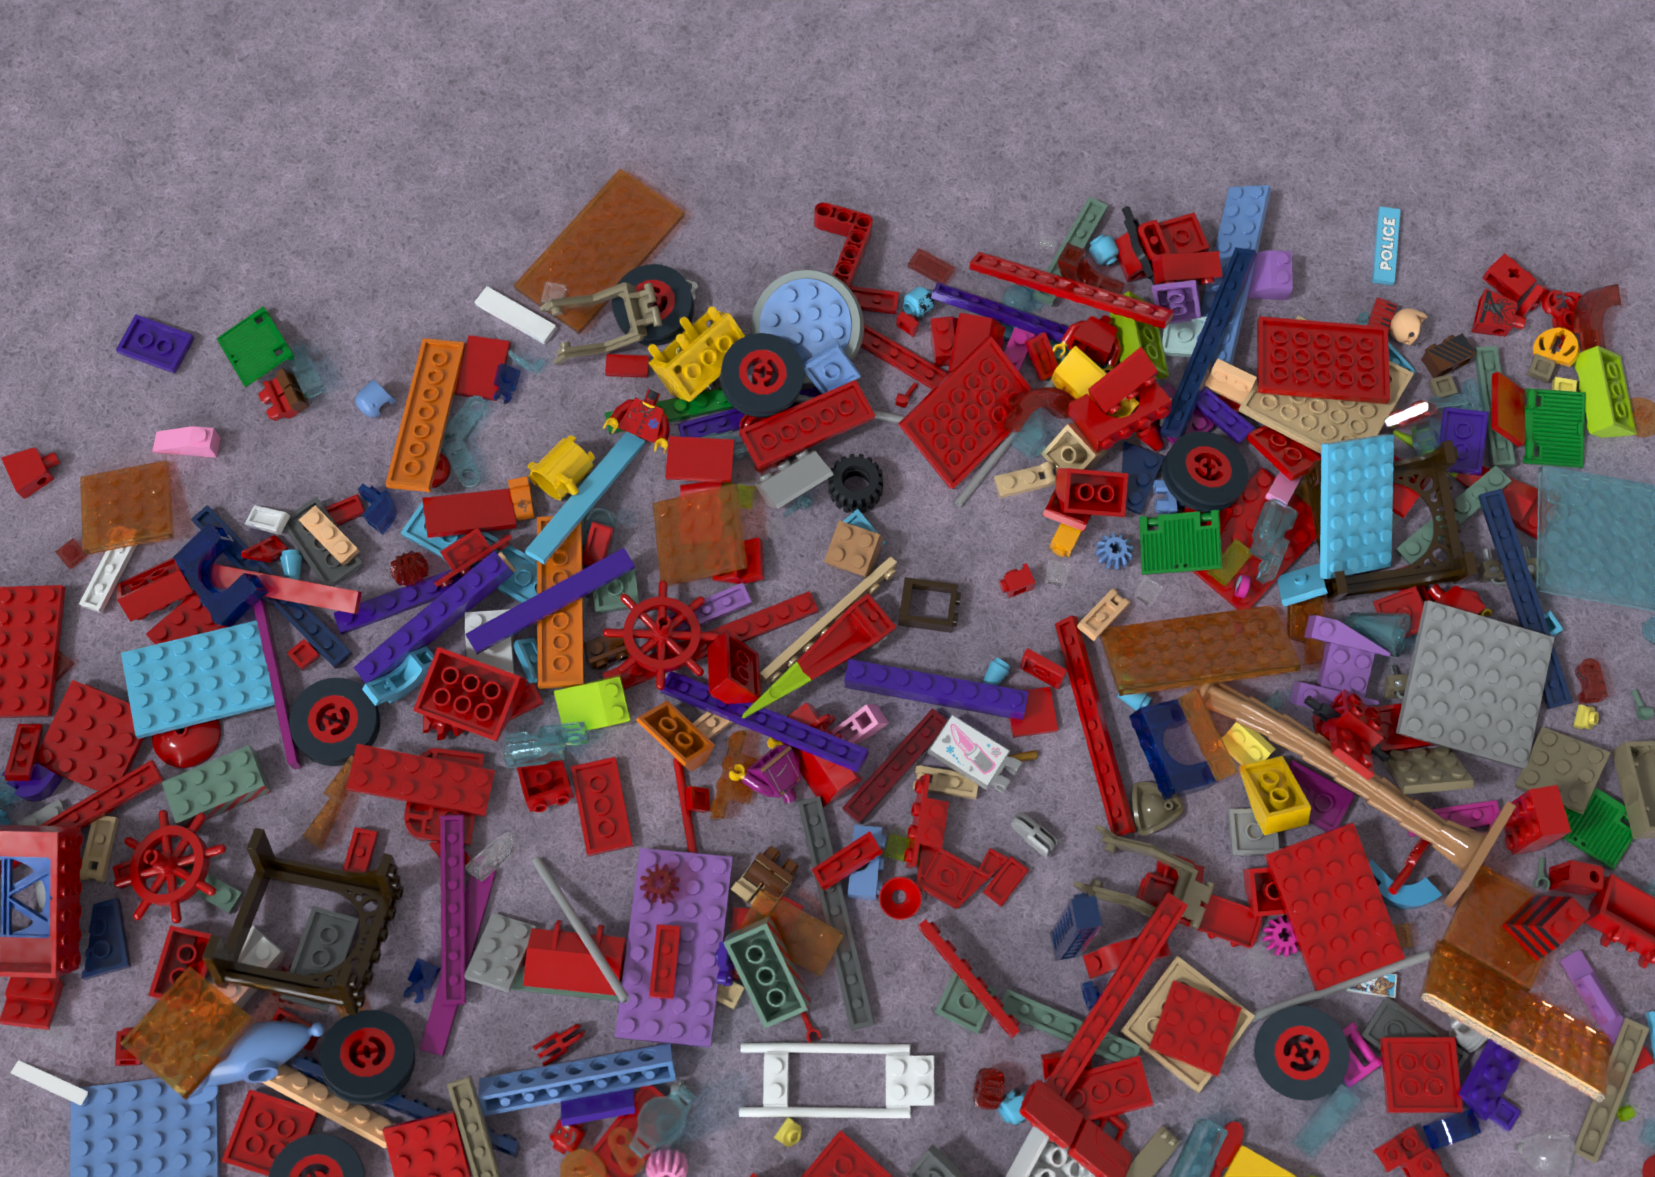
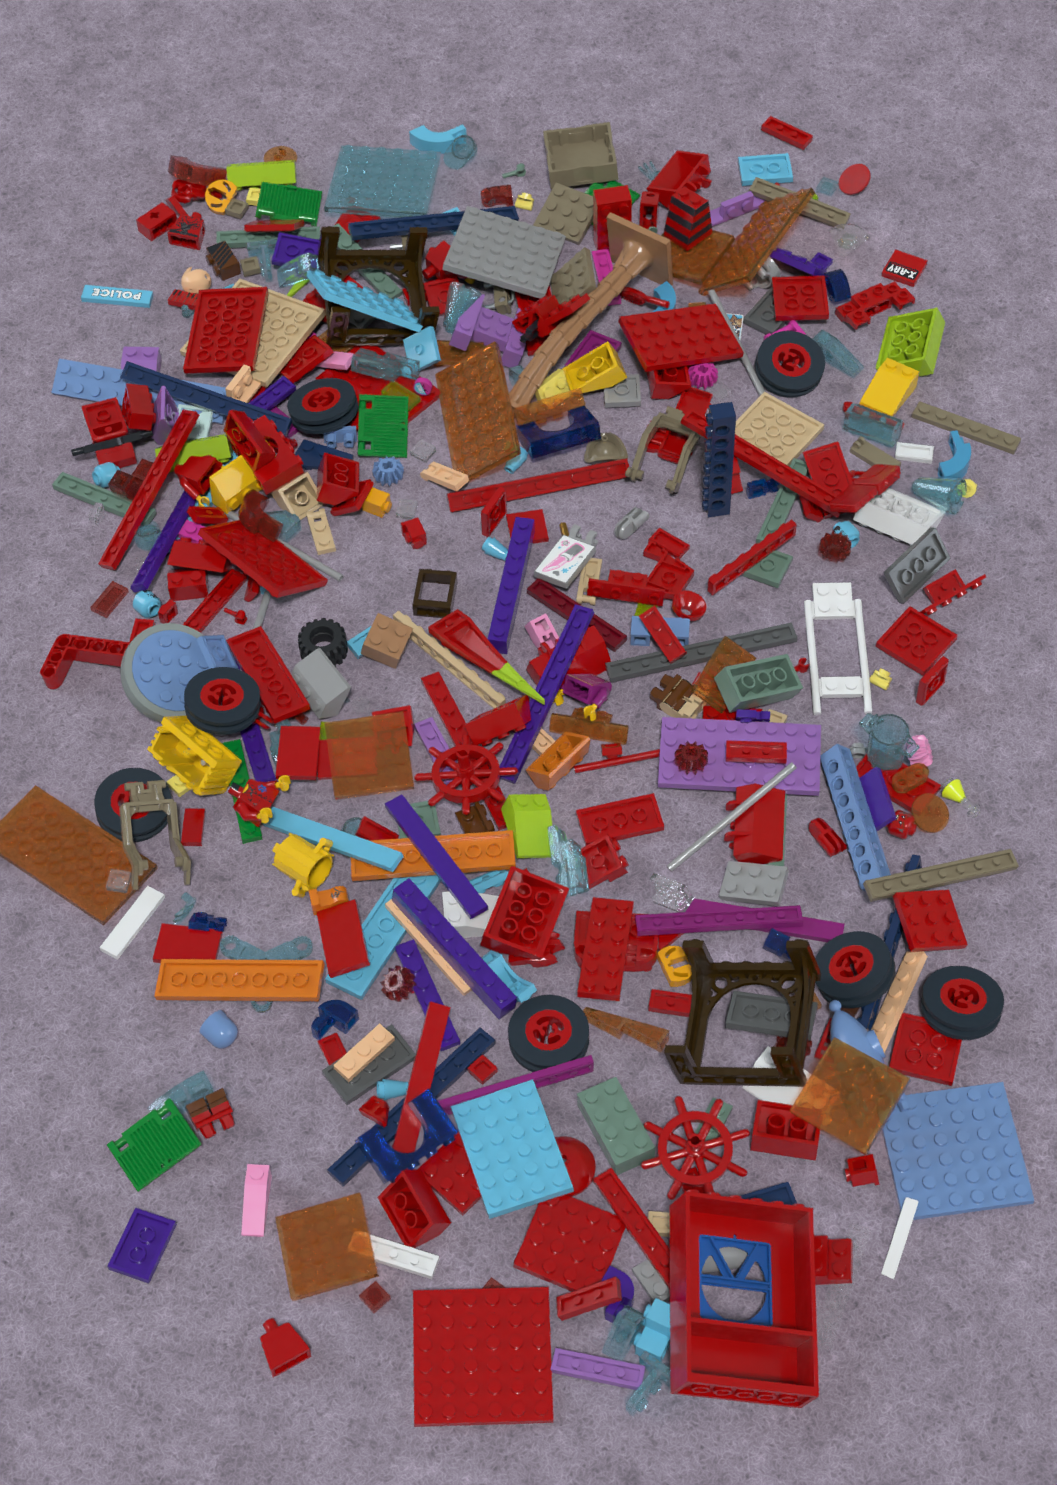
camera: 90 degrees left, 15 degrees down
(267, 519) = (344, 1113): white tile -> none
(421, 865) = (675, 976): none -> light orange piece
(465, 552) = (387, 929): red bracket -> none
(1195, 1028) = (777, 424): red plate -> none
(1417, 411) = (278, 273): plate -> none

